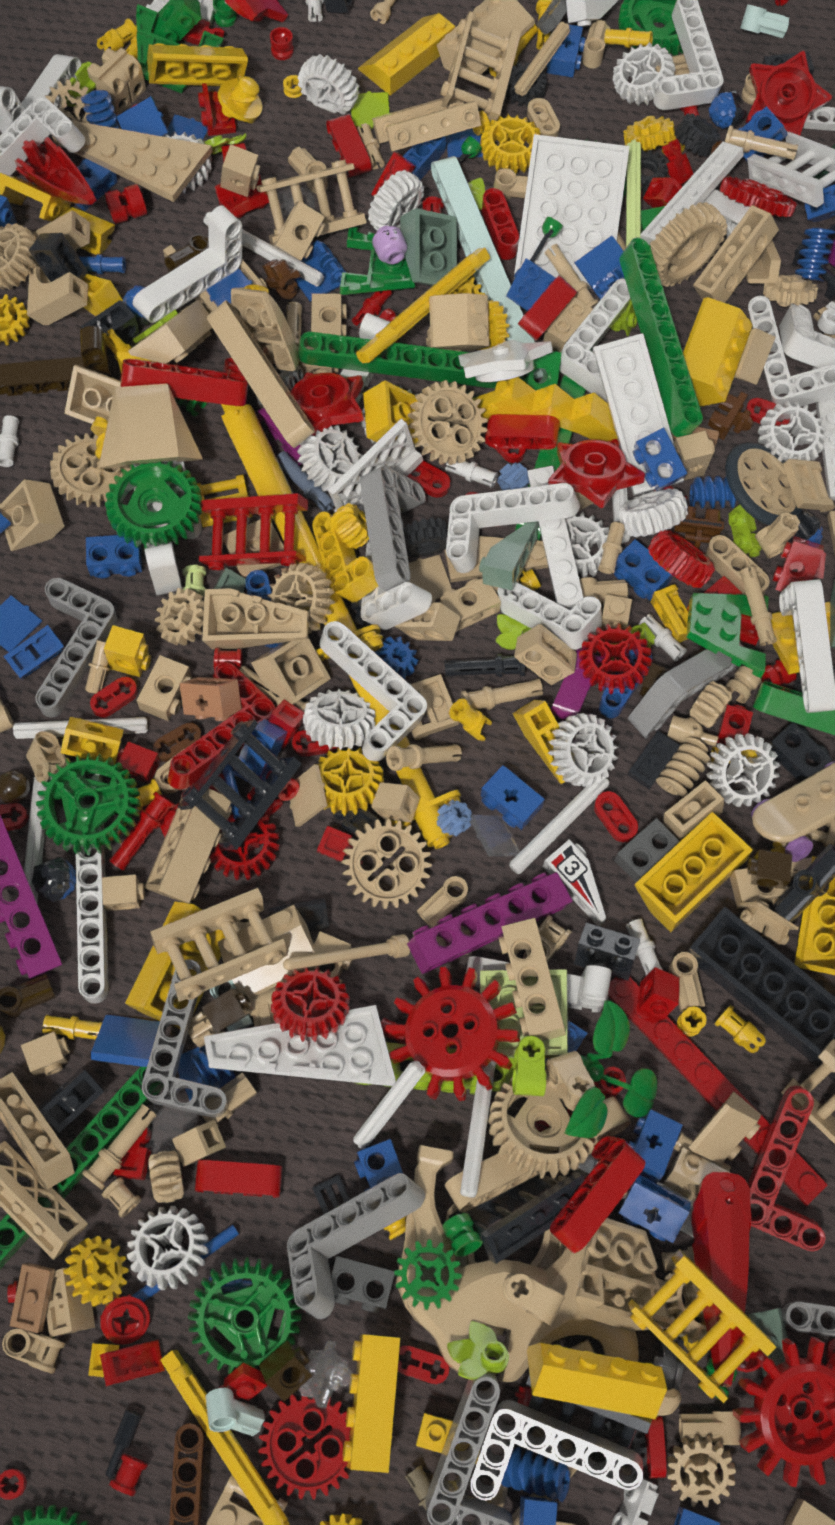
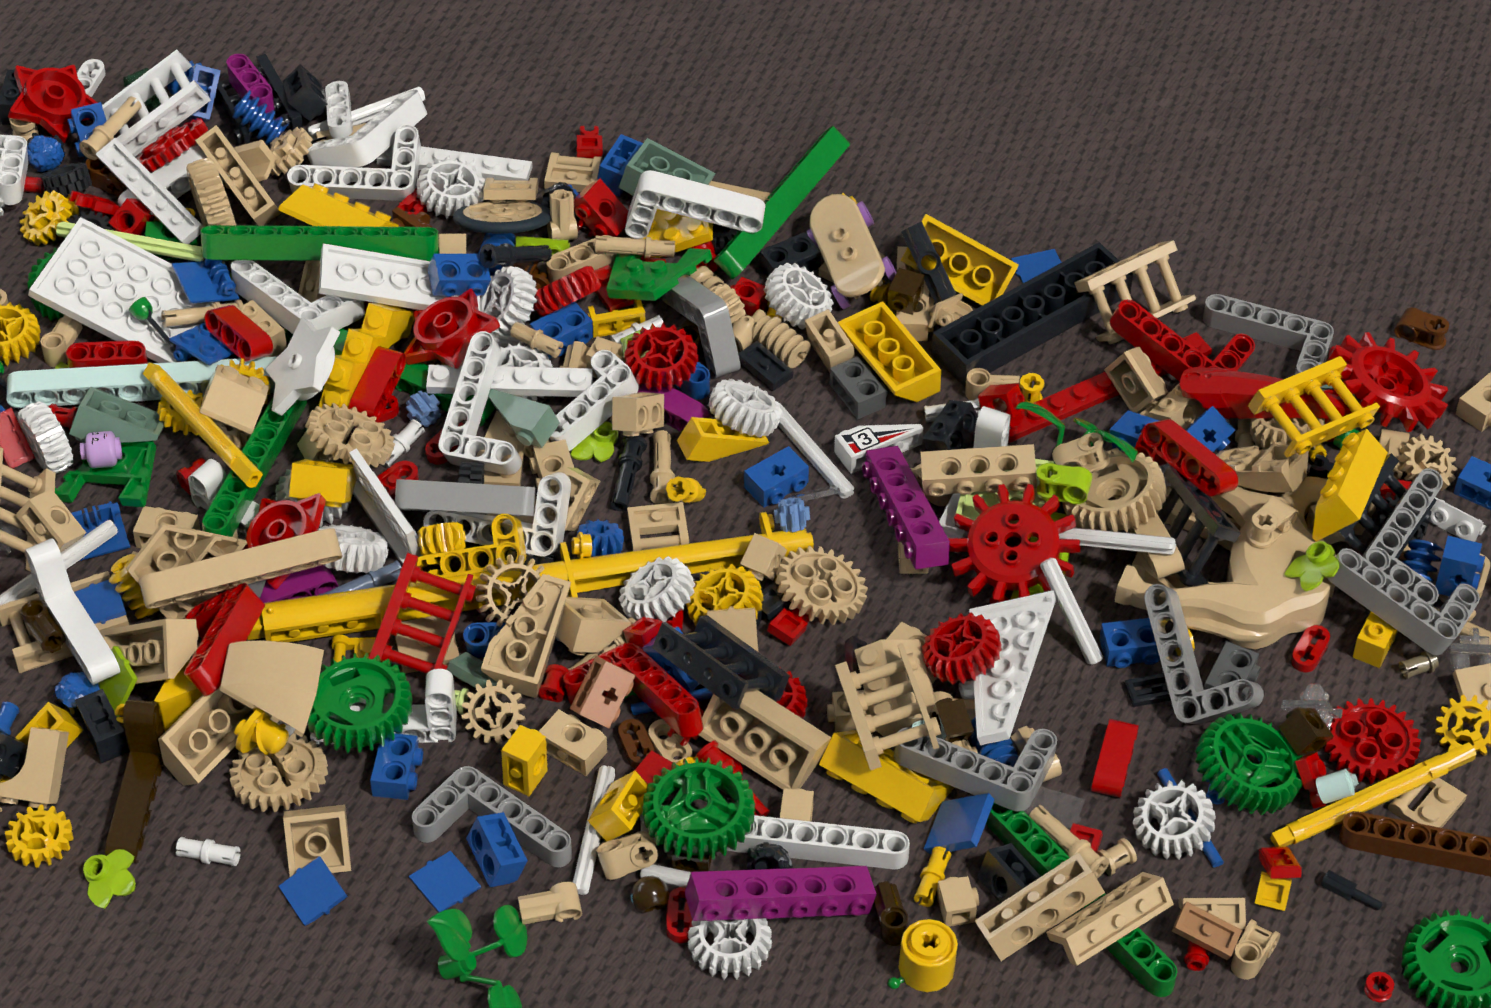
camera: 75 degrees left, 20 degrees down
(95, 1271) = (1190, 878): yellow gear -> none
(97, 669) = (530, 795): tan axle -> none
(110, 692) = (572, 791): red beam -> none
(128, 1474) = (1381, 886): red bush -> none
(133, 1329) = (1247, 872): red gear -> none
(166, 1176) = (1104, 809): tan gear -> none
(193, 1145) = (1077, 776): tan brick -> none
(280, 278) = (98, 556): reddish brown hips -> none
(372, 305) = (162, 493): red pin -> none
(372, 1404) = (1344, 666): yellow slope -> none
(377, 687) = (637, 538): white beam -> none
(395, 947) = (908, 595): tan piece -> none
(415, 756) = (717, 529): tan pin -> none
(417, 1284) = (1240, 592): green gear -> none
(441, 903) = (870, 548): tan piece -> none
(462, 1235) = (1200, 568): green wheel -> none
(617, 816) = (815, 406): red plate -> none
(692, 492) = (507, 254): none -> black pin
(743, 1032) = (1045, 359): yellow piece -> none
(754, 356) = (350, 185): tan panel -> none

